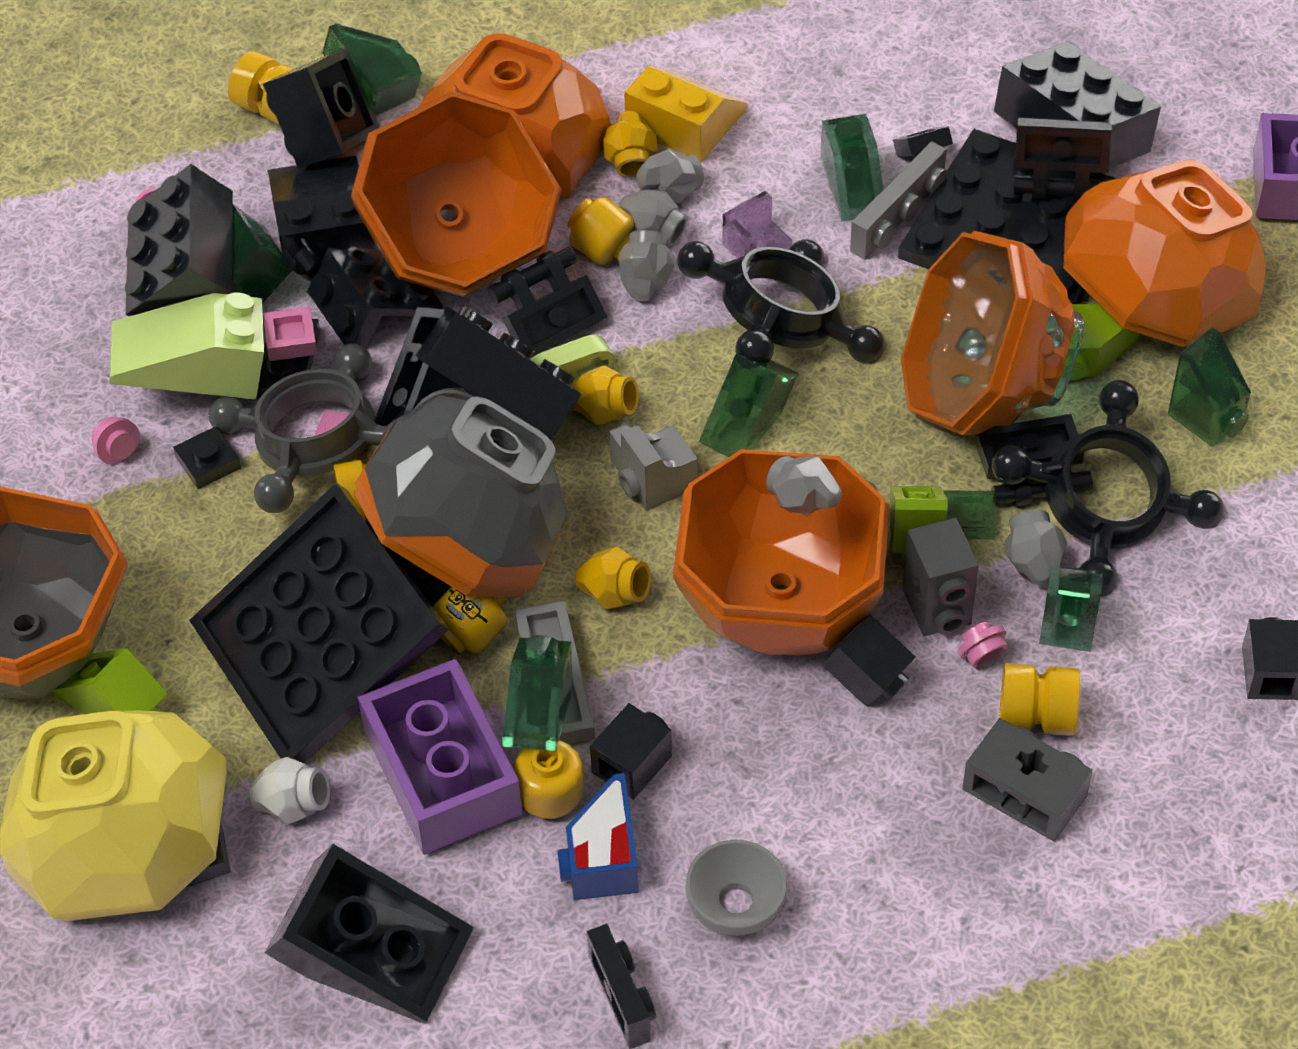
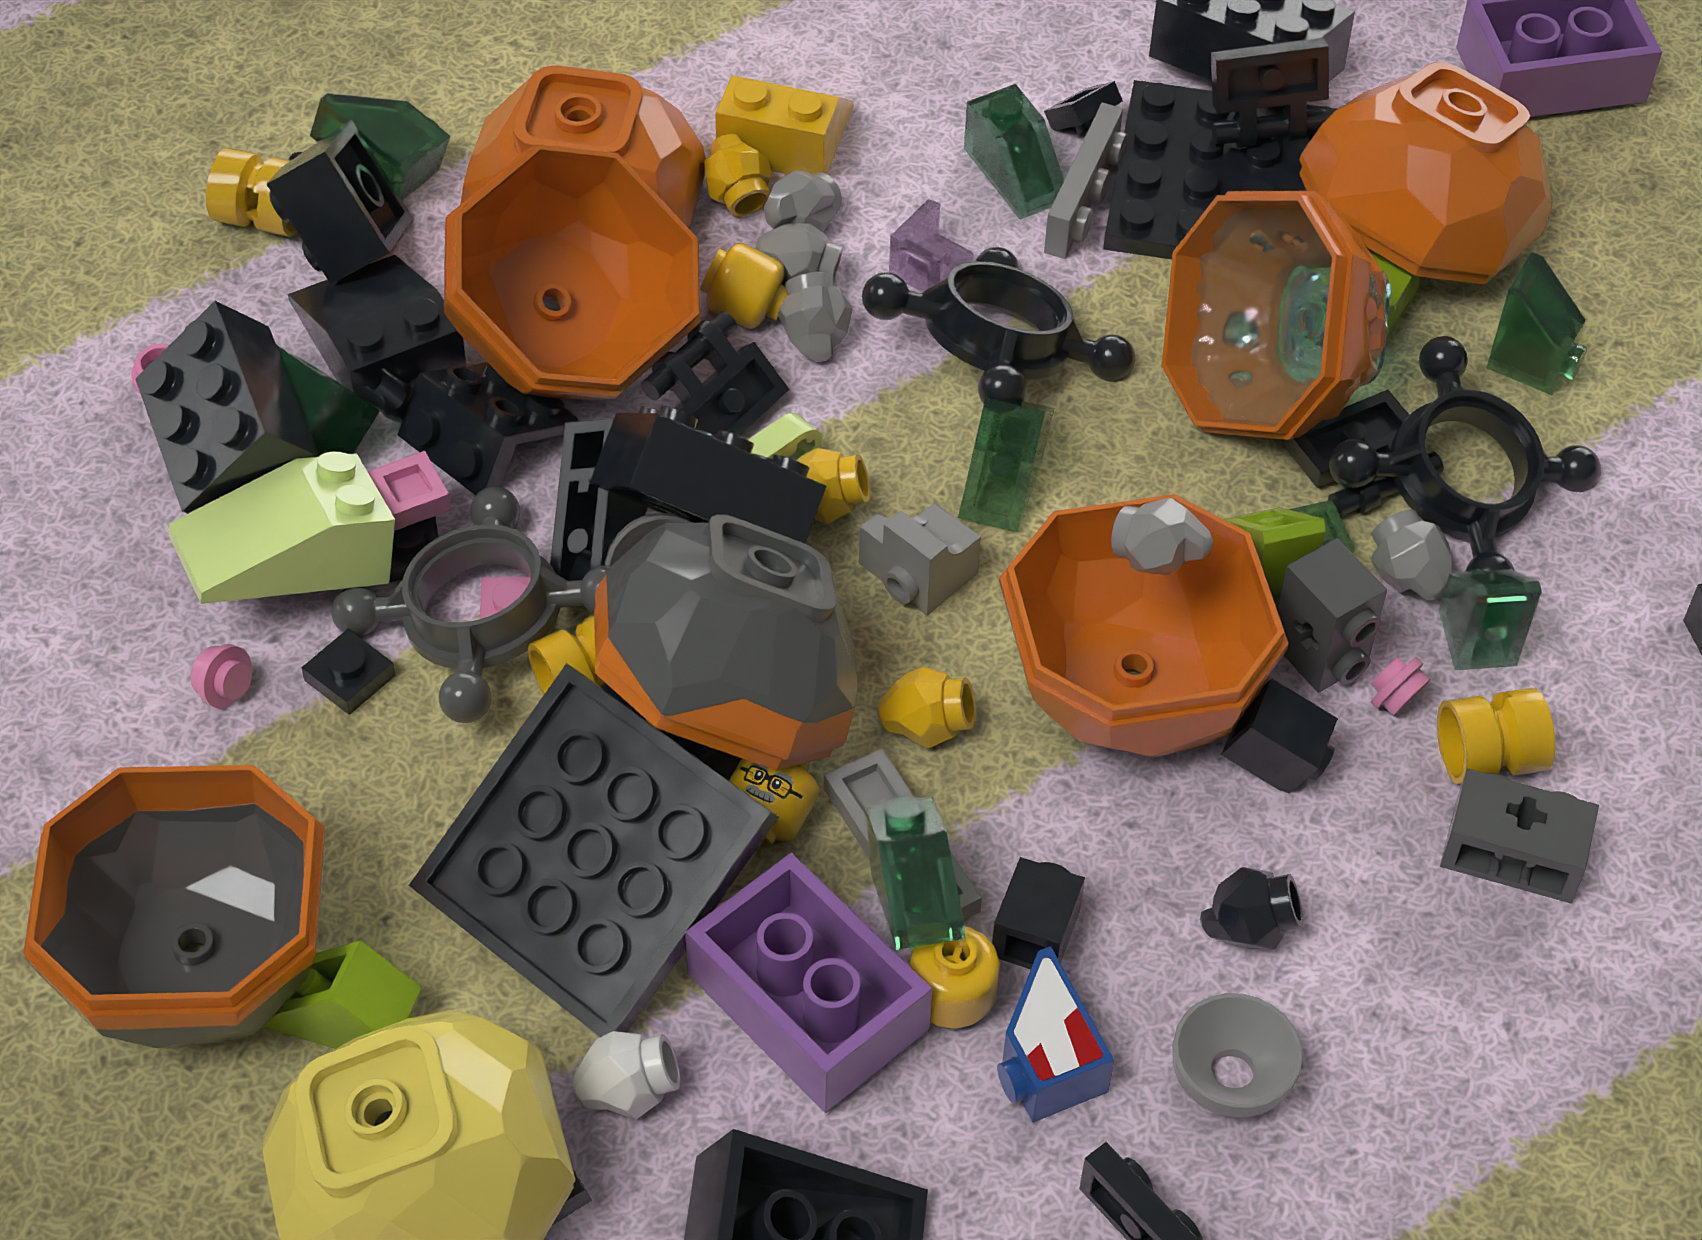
camera: 20 degrees left, 0 degrees up
(797, 784) = (1253, 909): none -> black rock

